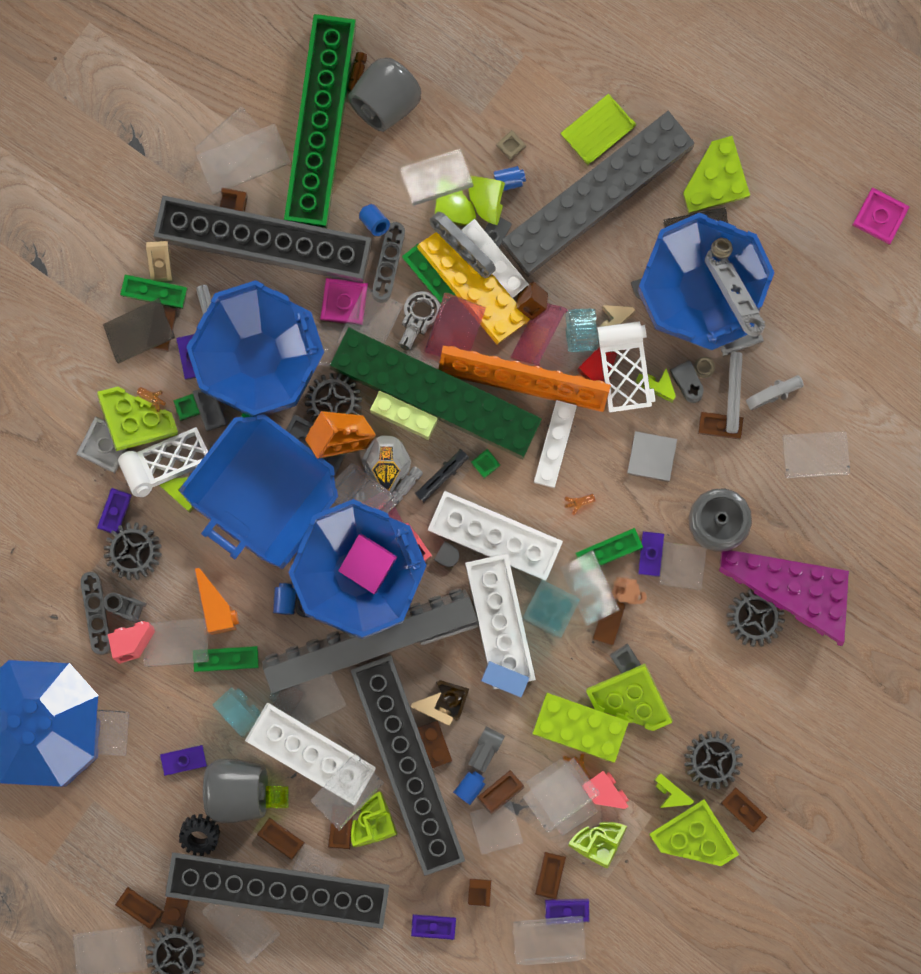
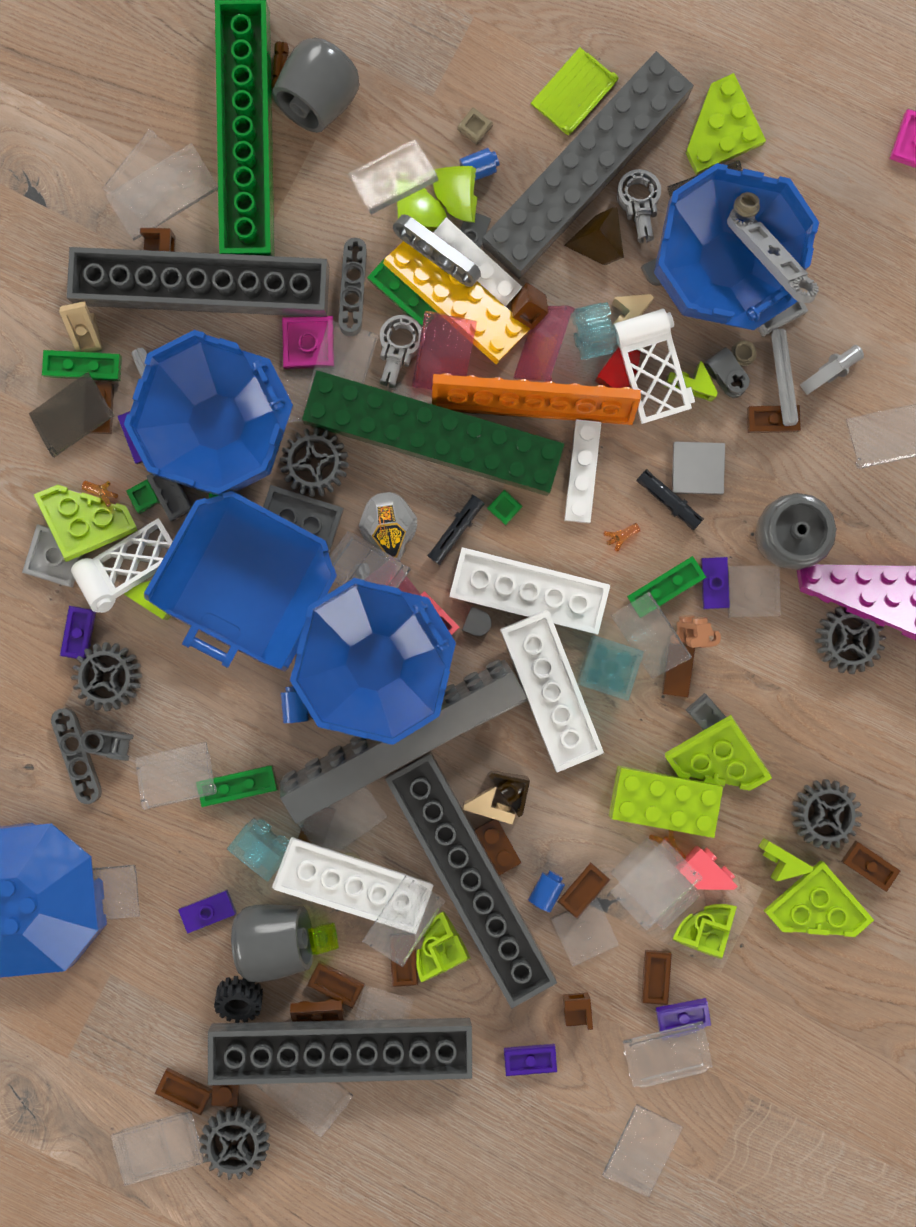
camera: 10 degrees left, 5 degrees up
(130, 642) = (120, 785): coral slope -> none
(217, 612) = (214, 730): orange slope -> none
(262, 856) = (317, 1011): none -> reddish brown plate
(339, 434) = (325, 500): orange wedge -> none
(367, 563) = (385, 651): dark pink tile -> none
(374, 220) = (328, 238): blue brick -> none
(404, 415) = (399, 465): yellowish green brick -> none
(407, 483) = (416, 545): light grey axle -> none
(487, 747) = (561, 836): dark grey piece -> none
(505, 679) = (568, 759): medium blue tile -> none
(599, 254) = (600, 238): none -> dark brown slope
(619, 473) = (670, 500): none -> black pin
(637, 242) = (641, 207): none -> light grey pin

